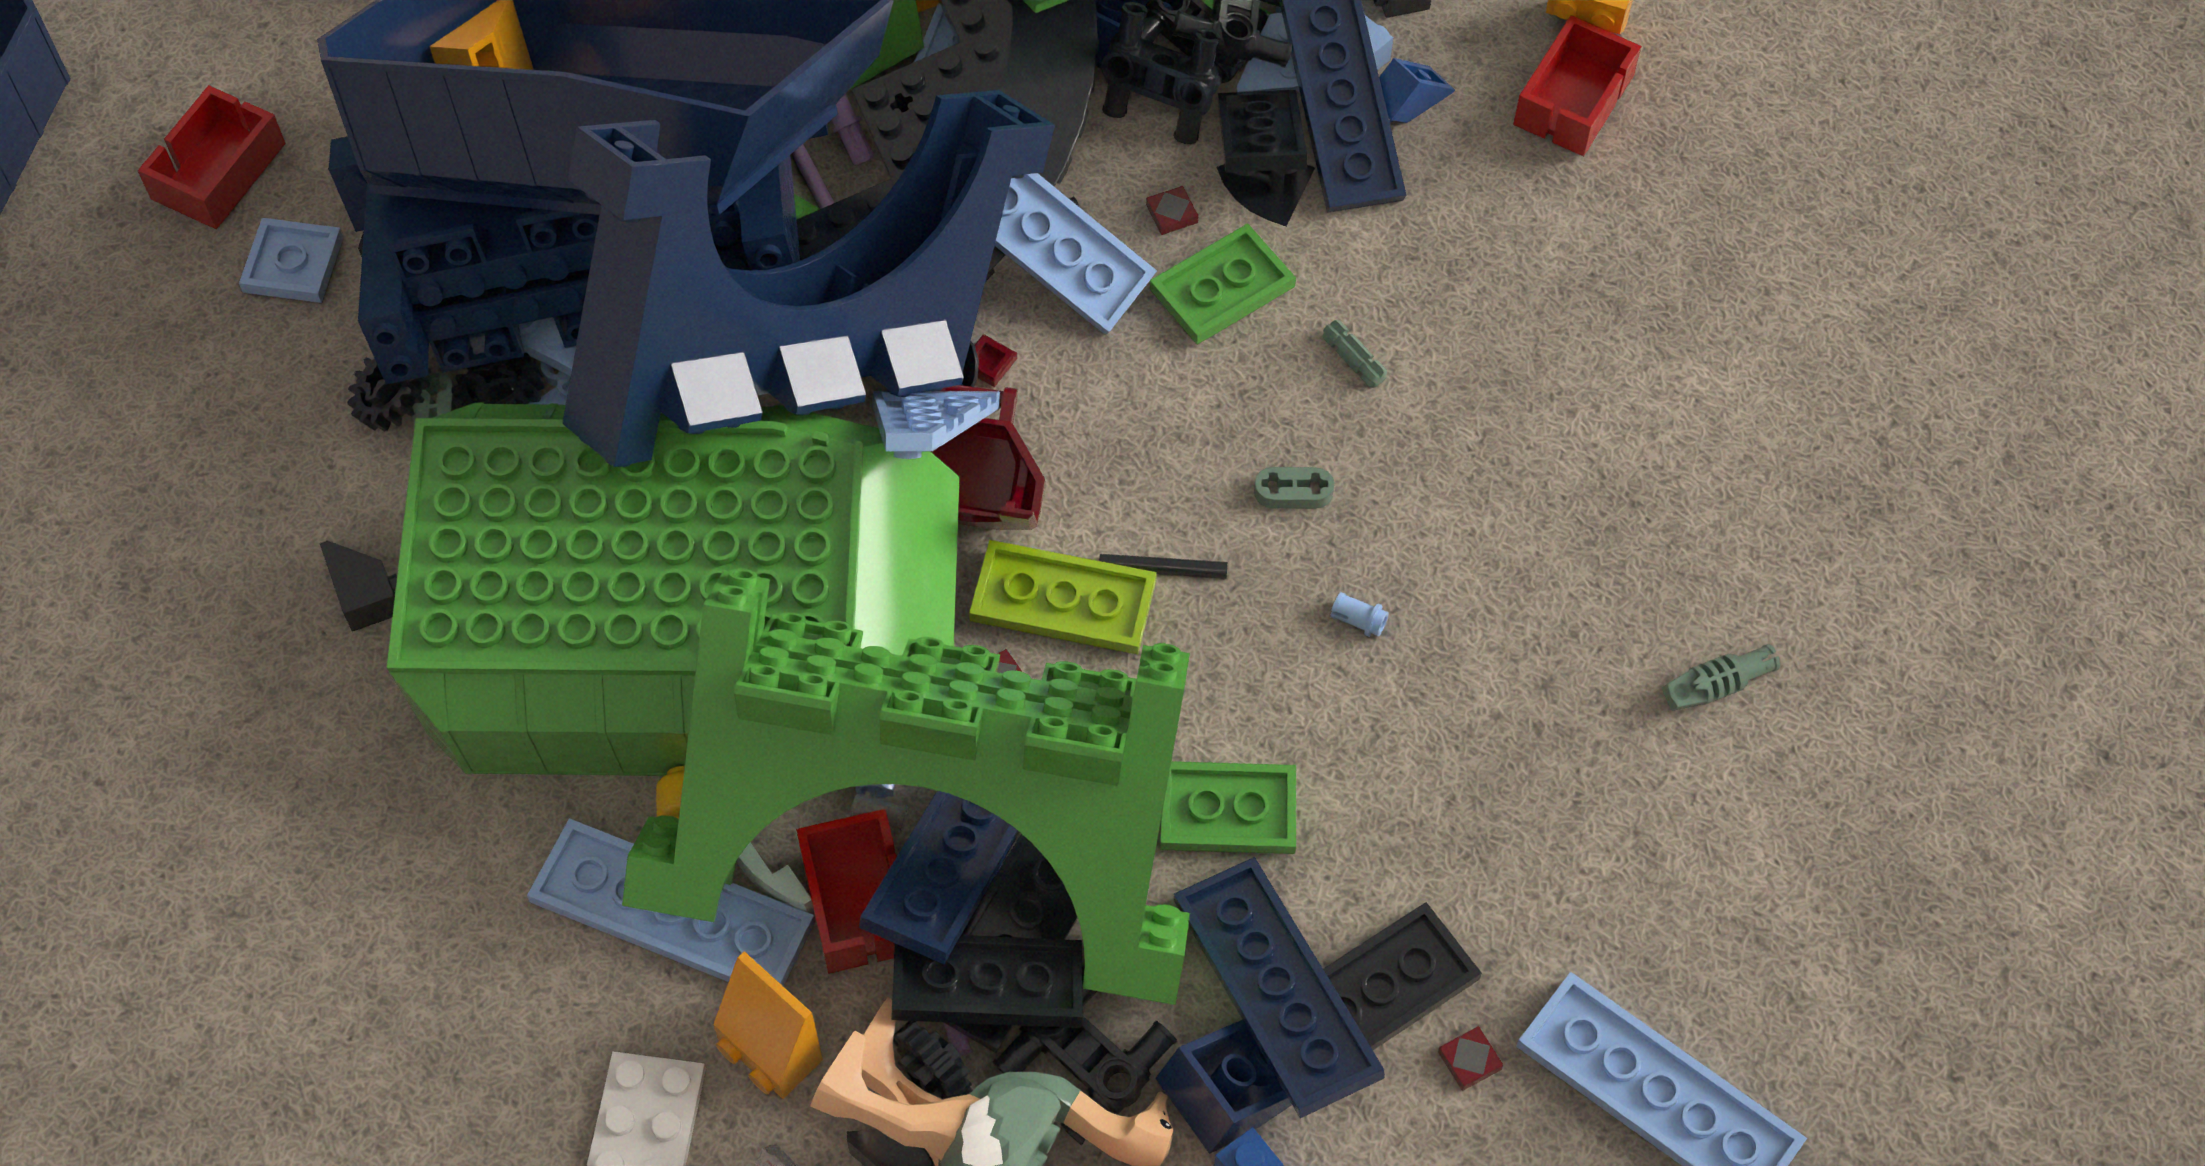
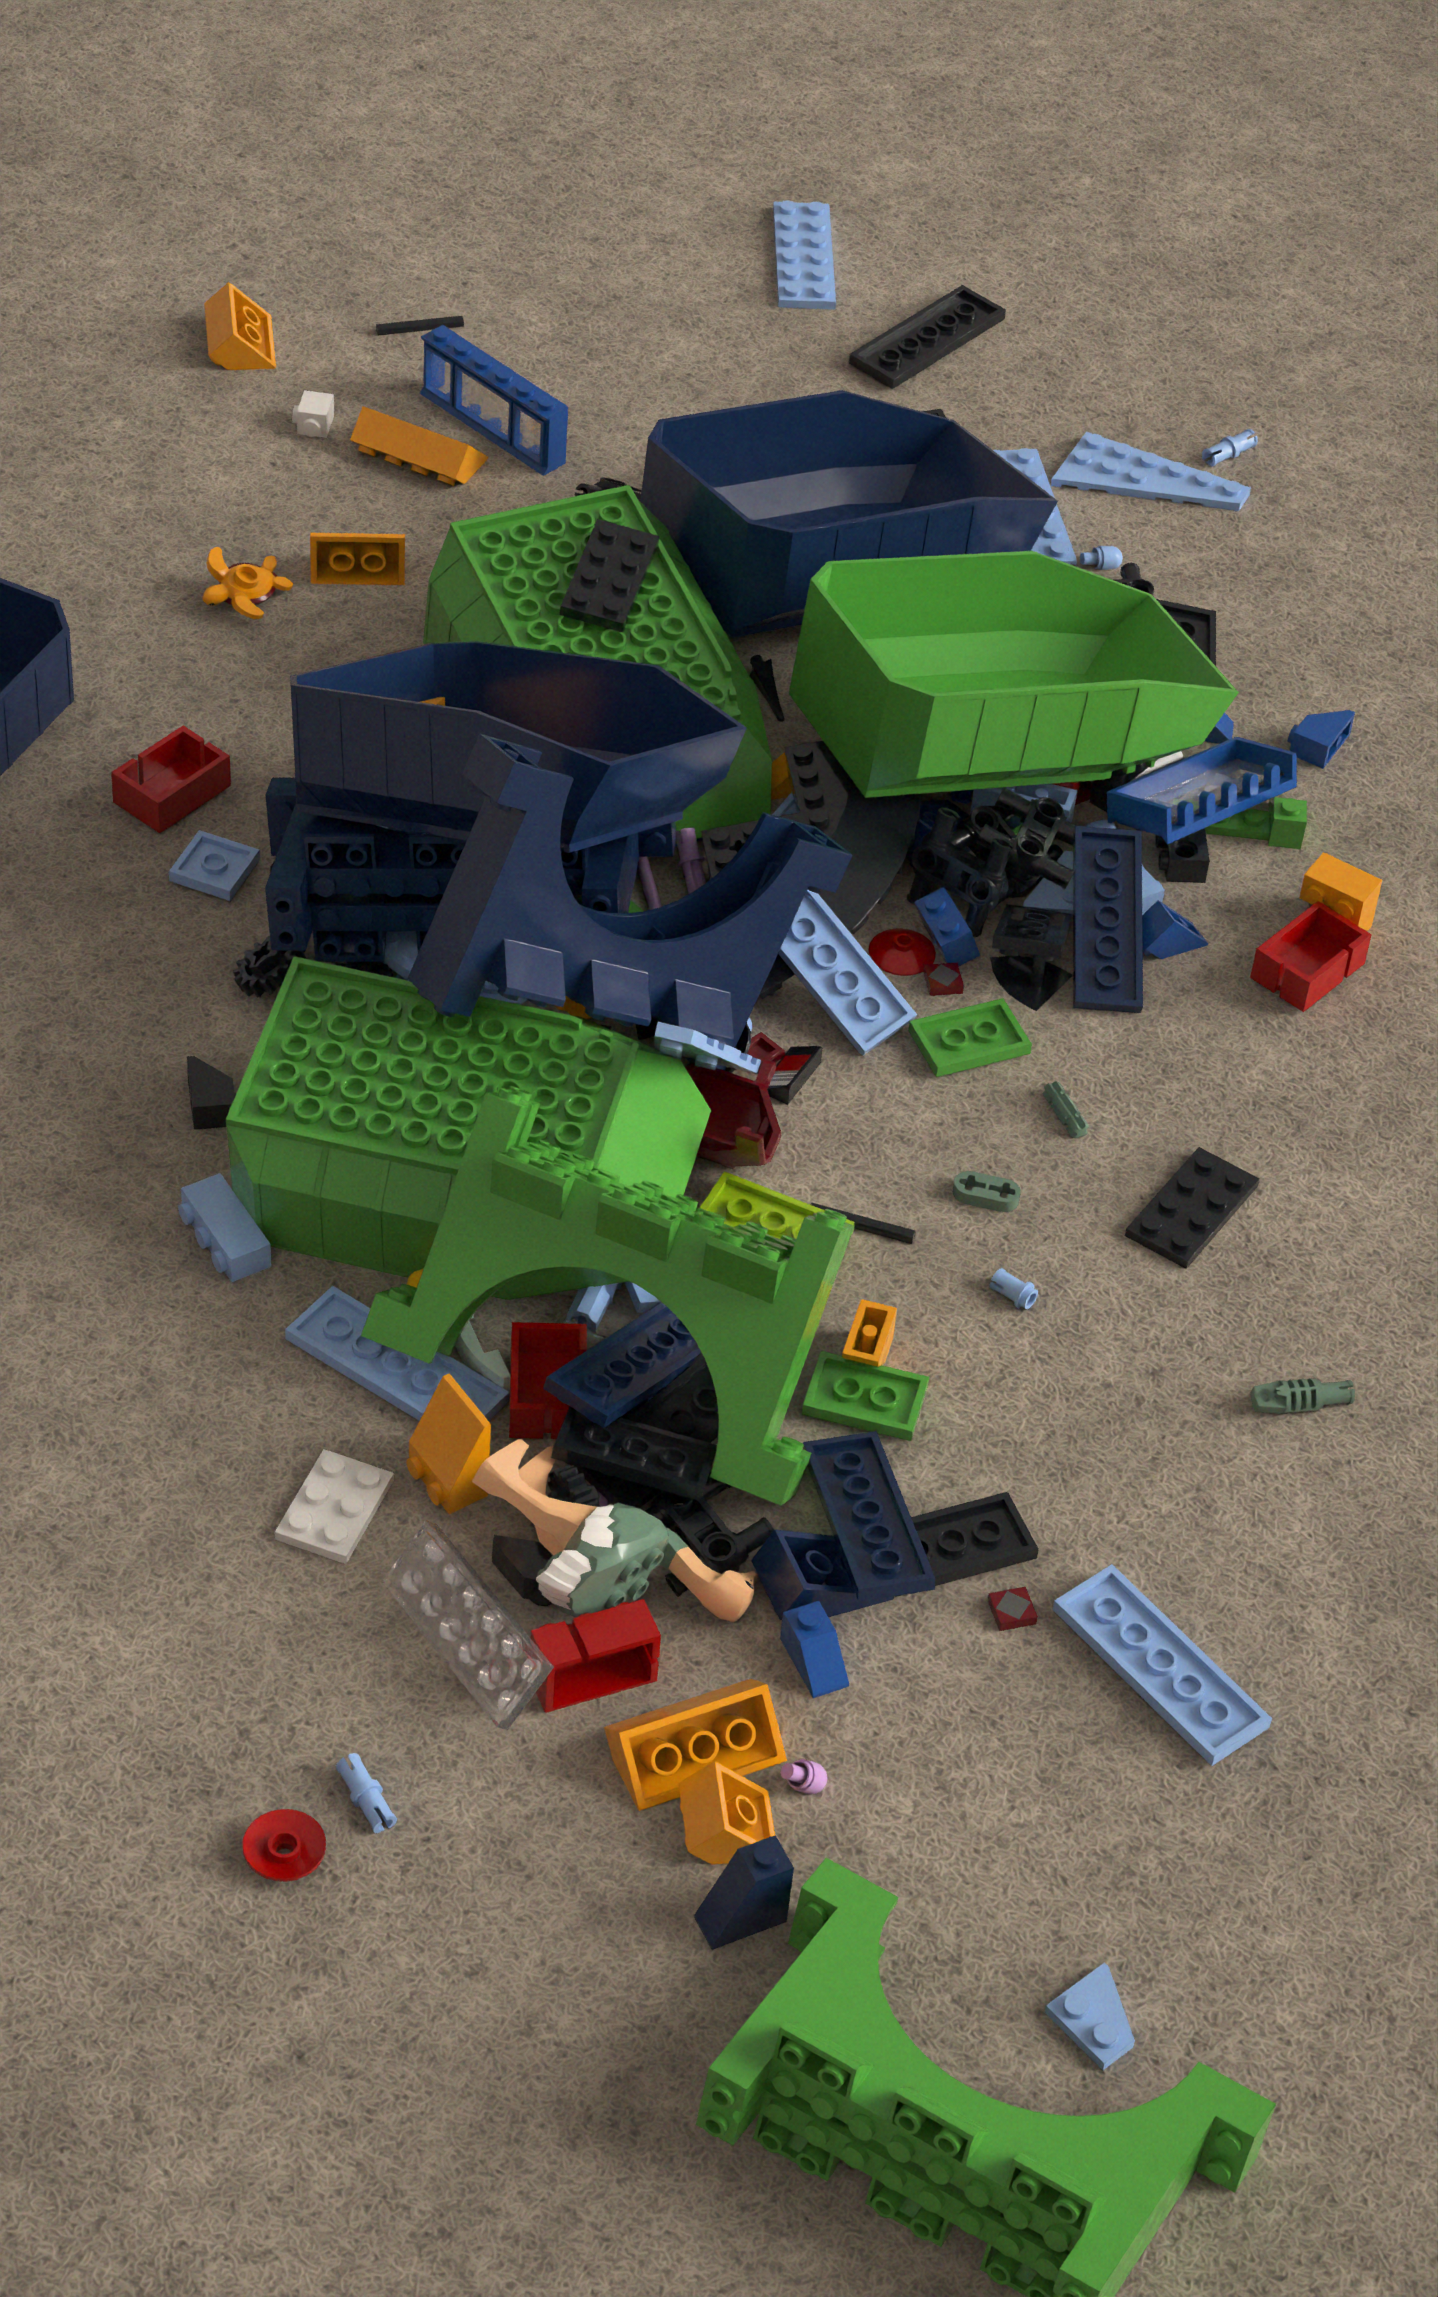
camera: 10 degrees right, 15 degrees down
(420, 768) = (224, 1228): none -> light blue brick
(1033, 377) = (793, 1072): none -> slope
(1115, 195) = (901, 951): none -> red dish
(1161, 145) = (947, 927): none -> blue brick
(1216, 732) = (871, 1333): none -> light orange slope
(1529, 450) = (1192, 1207): none -> black plate

